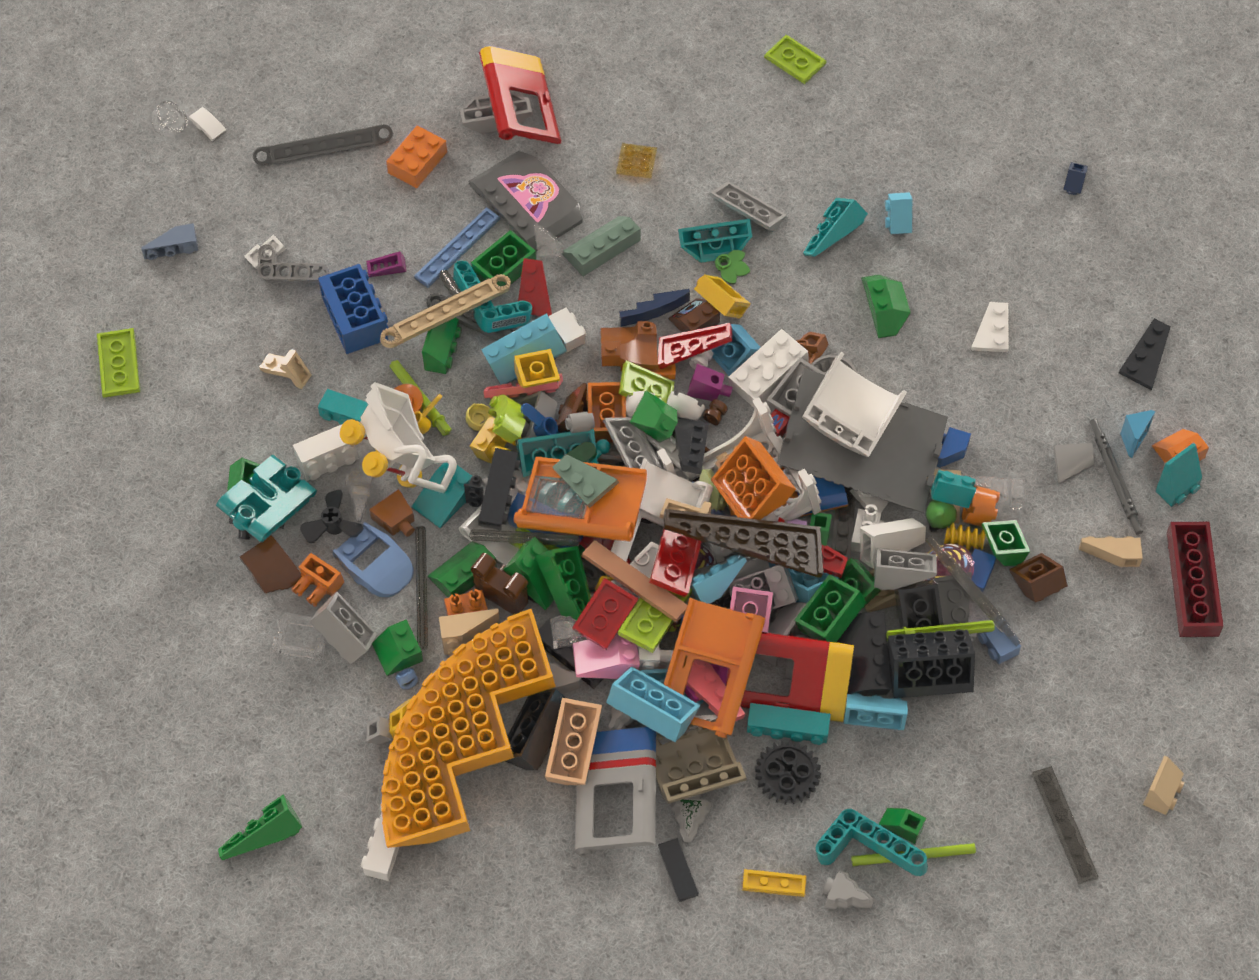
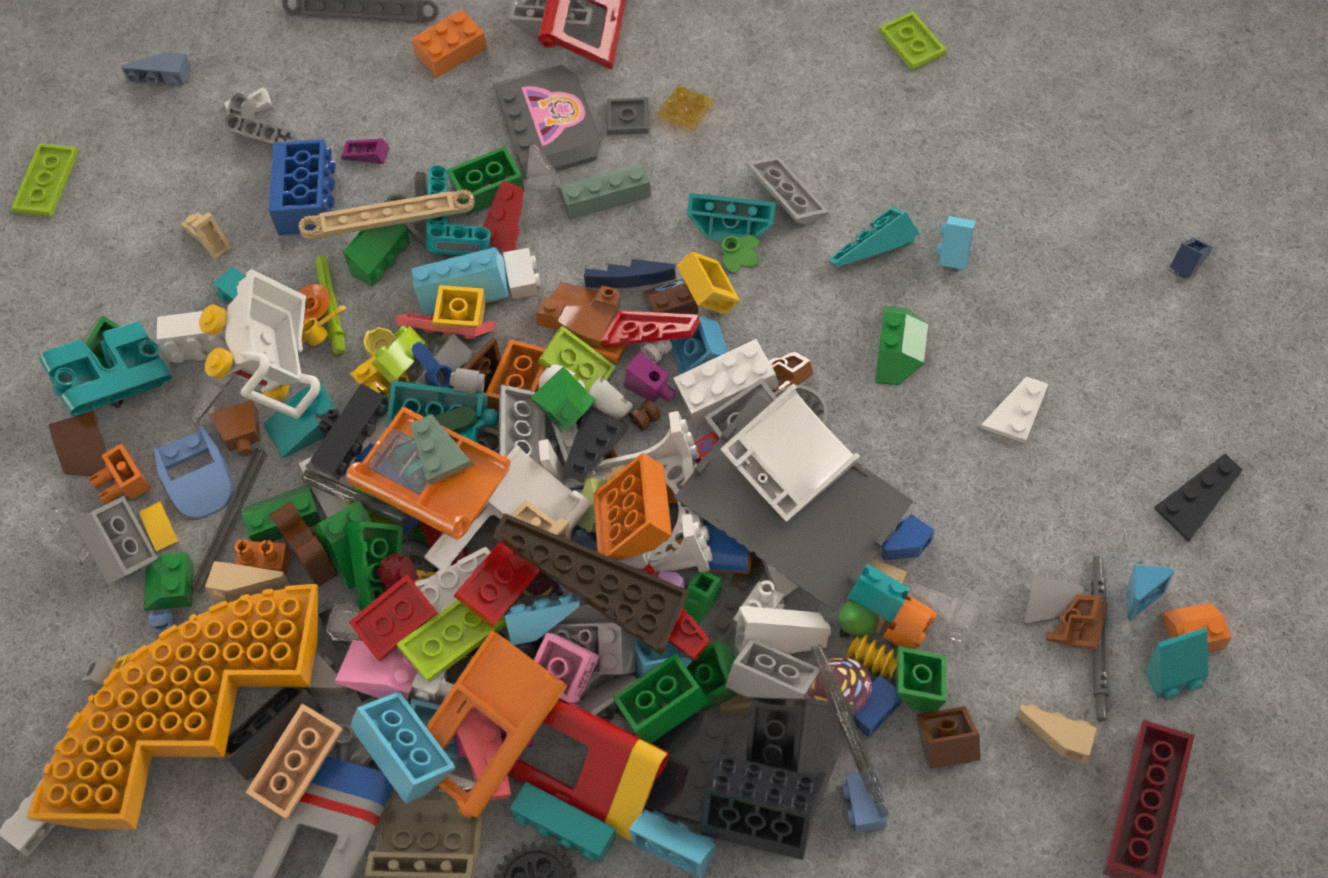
camera: 25 degrees right, 0 degrees up
(315, 529) = (166, 412): black piece -> none
(367, 609) = (158, 526): none -> yellow slope
(457, 247) = (449, 151): medium blue tile -> none
(588, 580) = (395, 568): none -> dark red brick
(592, 179) = (627, 116): none -> dark grey tile
(634, 581) = (442, 588): nougat tile -> none
(972, 627) = (827, 775): lime axle -> none
(1100, 469) = (1081, 623): none -> dark orange slope

